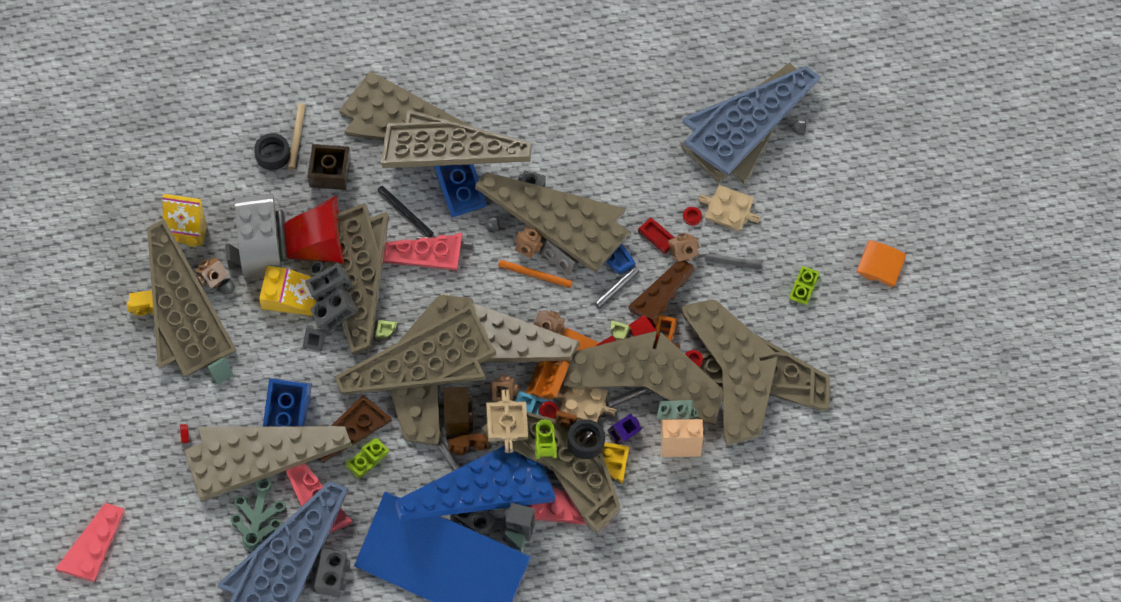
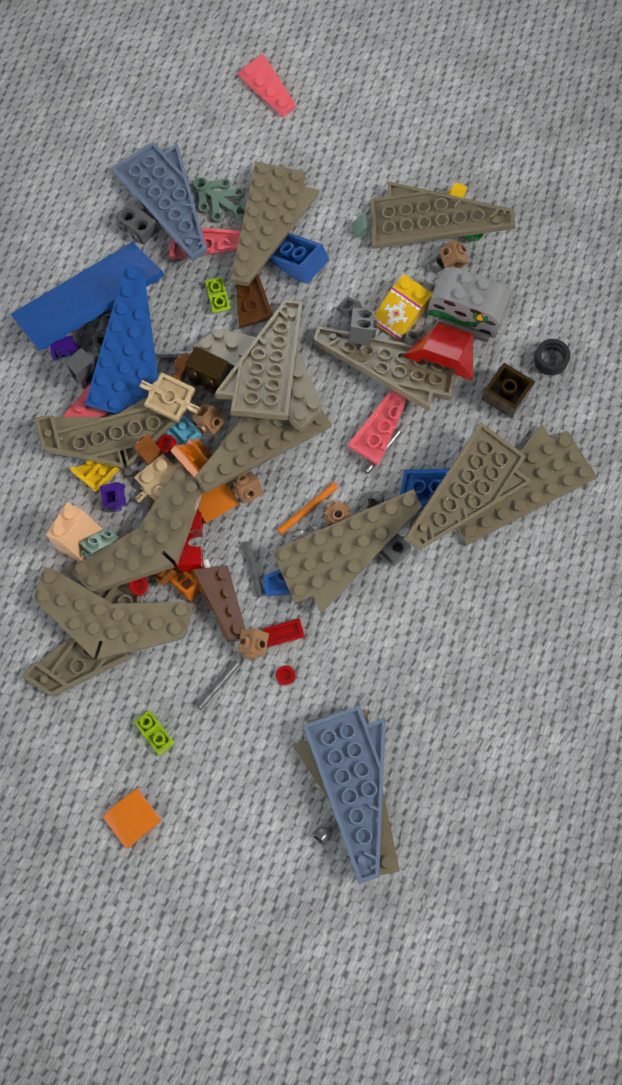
camera: 120 degrees right, 10 degrees up
(184, 434) = (320, 177): red tile -> none
(185, 219) = (512, 252): yellow slope -> none
(296, 136) = (558, 385): tan bar -> none
(328, 281) = (385, 330): dark grey brick -> none
(384, 329) = (326, 364): yellowish green tile -> none
(405, 211) = (432, 435): black bar -> none
(545, 443) = (130, 415): lime piece -> none
(586, 425) = (111, 437): black tyre -> none
(619, 330) = (209, 547): yellowish green tile -> none
(729, 208) = (272, 713): tan plate -> none

